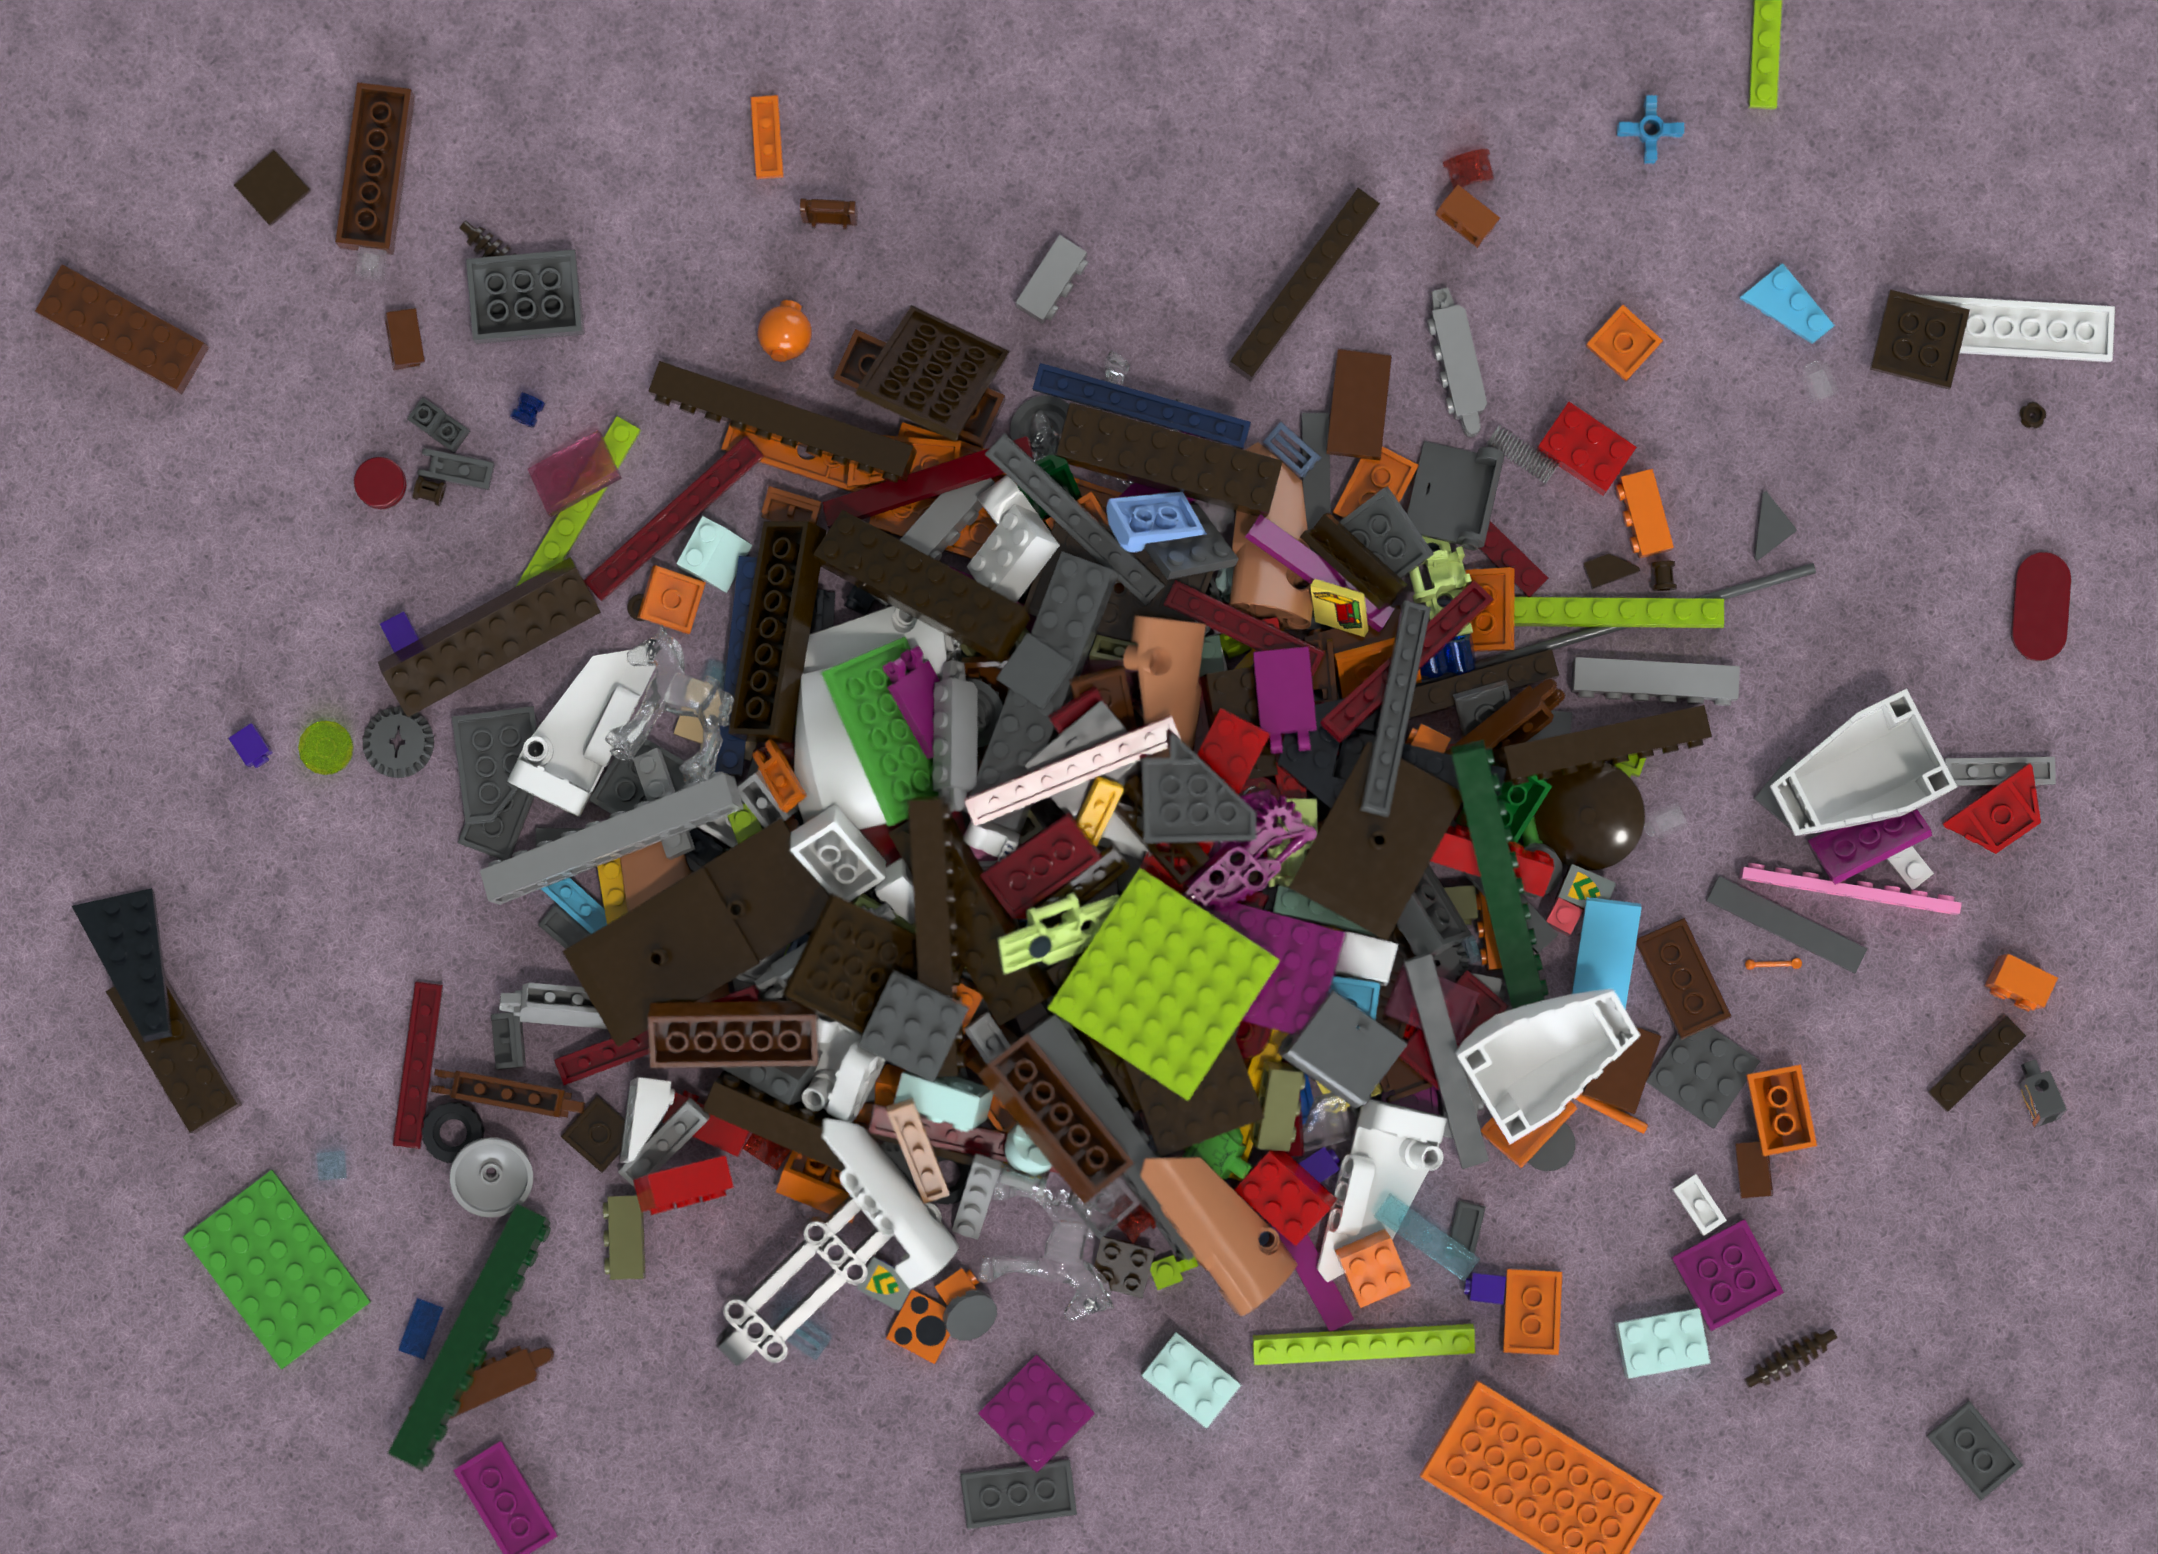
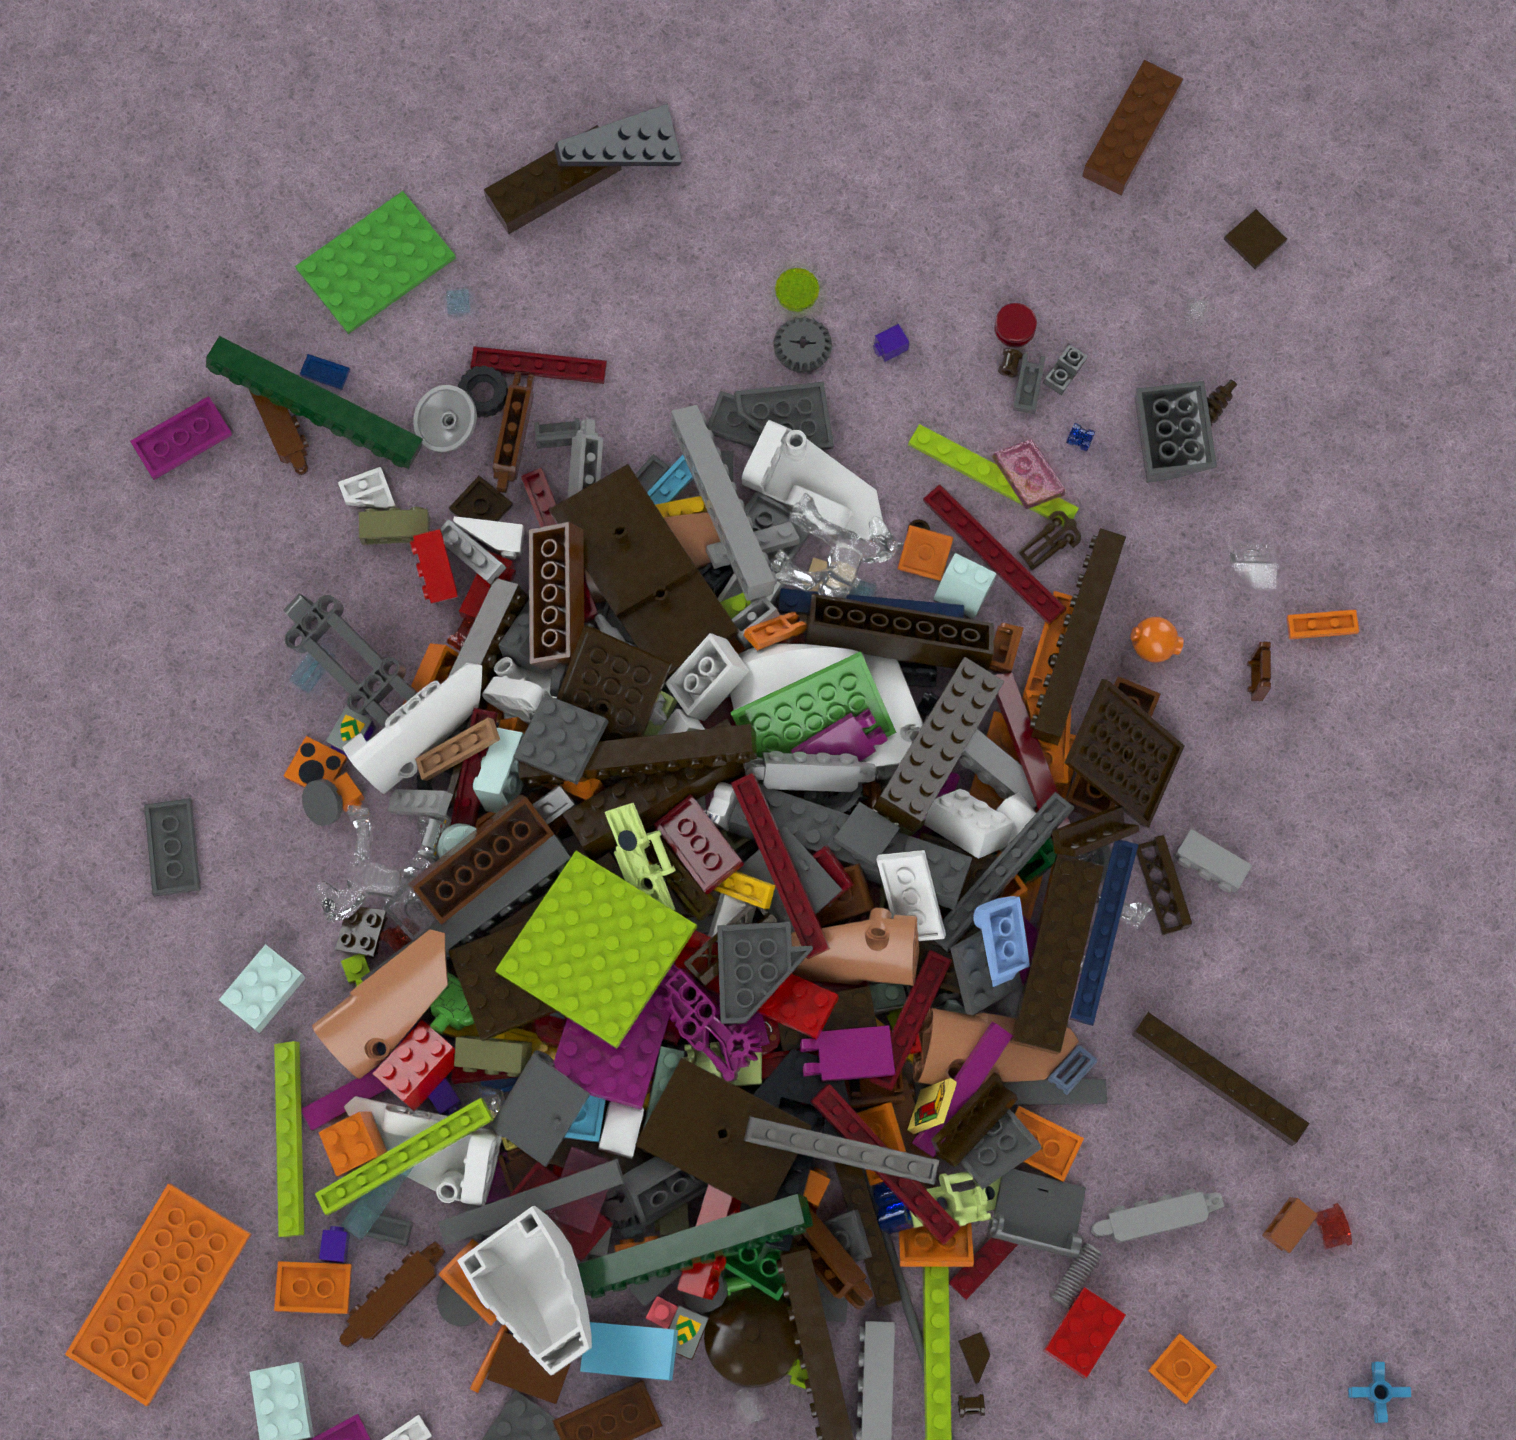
camera: 90 degrees right, 10 degrees down
(251, 746) = (797, 231): dark purple brick -> none
(375, 167) = (1276, 313): reddish brown brick -> none
(404, 339) = (1135, 339): reddish brown hinge -> none
(488, 637) = (890, 408): dark brown brick -> none
(578, 1271) = (367, 490): none -> white wing
(639, 427) = (1069, 524): none -> dark brown piece
(690, 212) = (1254, 563): none -> clear slope
(837, 1032) = (557, 679): none -> dark grey tile
(1023, 408) = (1092, 832): none -> dark brown fence
(1036, 1413) = (238, 860): magenta plate -> none
(1078, 327) = (1172, 884): none -> dark brown fence
(1103, 621) = (912, 891): none -> white tile
(1359, 404) = (1115, 1128): reddish brown tile -> none
(1391, 1207) = (404, 1156): none -> lime plate
(1542, 1219) = (393, 1295): none -> reddish brown hinge
(1644, 514) = (1027, 1387): orange brick -> none

